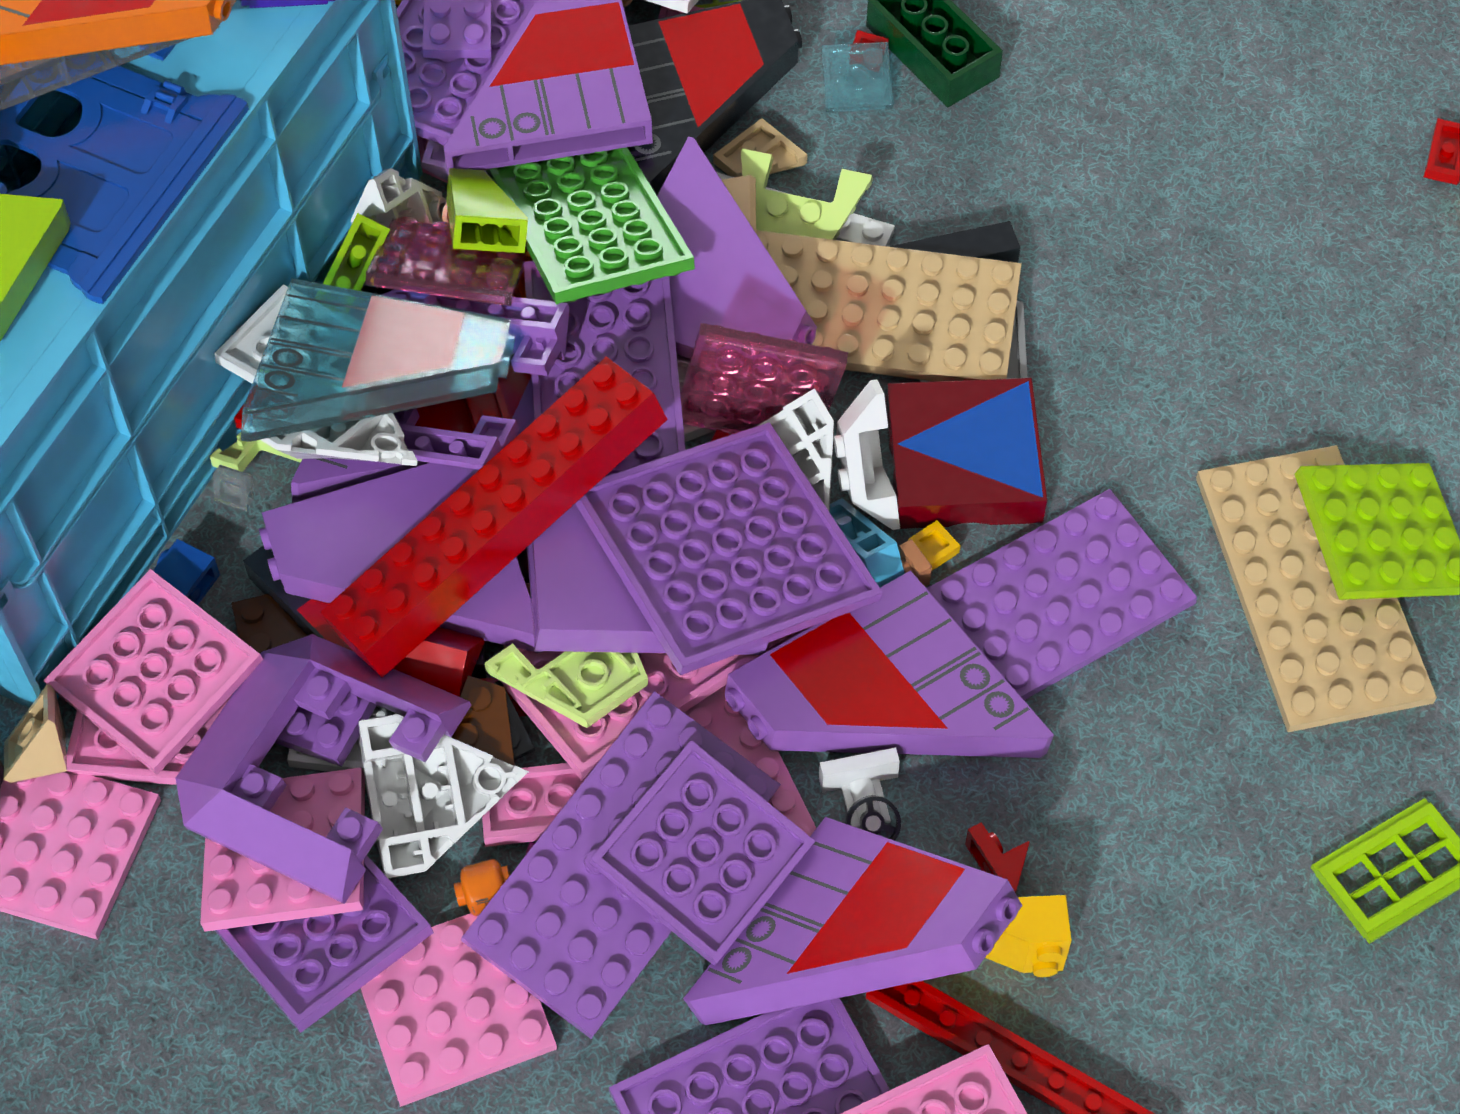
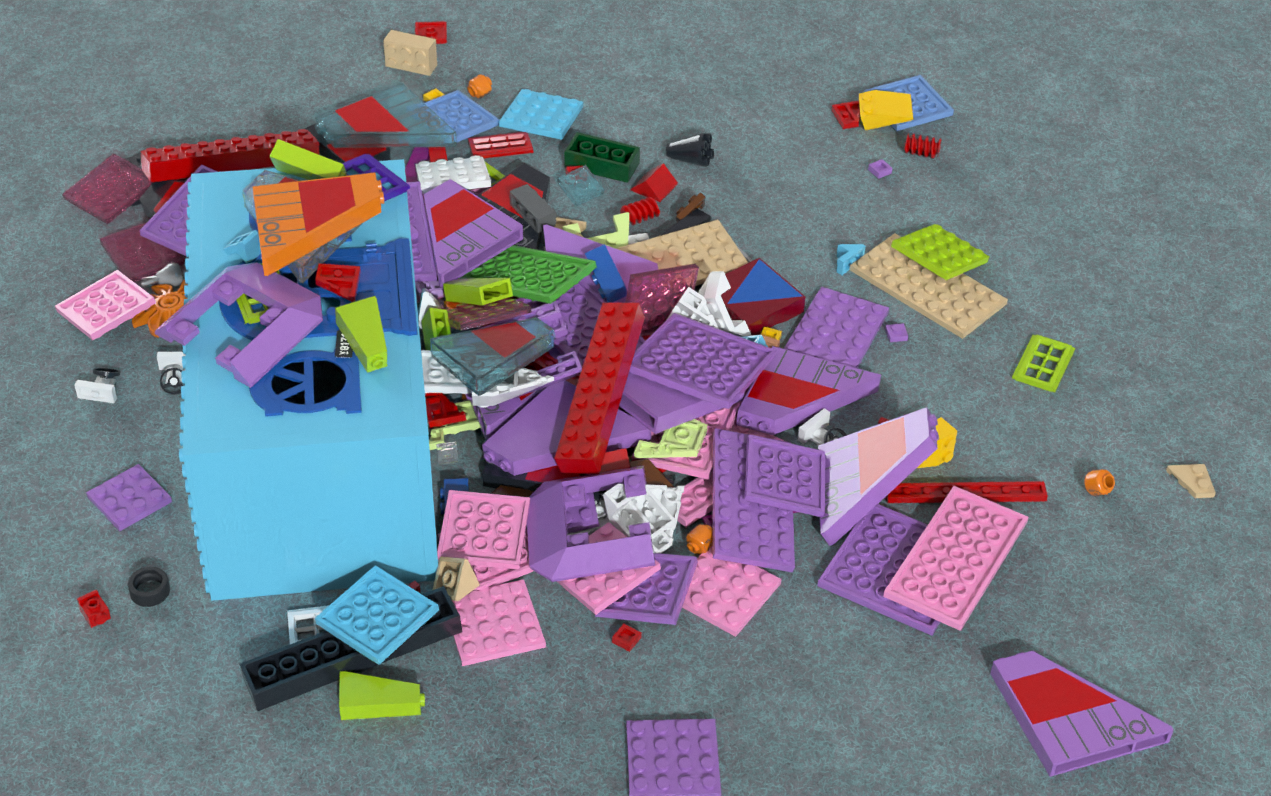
camera: 35 degrees left, 15 degrees down
(60, 133) = (339, 279): none -> red wing
(221, 1002) = (626, 637): none -> red plate
(710, 91) = (532, 208): none -> dark grey brick
(712, 287) = (606, 275): none -> blue brick
(913, 177) = (641, 210): none -> red piece
(991, 134) = (656, 183): none -> red slope
(1012, 209) = (694, 203): none -> reddish brown wing
(1105, 97) = (692, 149): none -> black cone
(1171, 655) = (896, 332): none -> medium lavender plate
(1212, 451) = (847, 255): none -> medium azure slope
(1421, 295) = (880, 168): none -> medium lavender plate

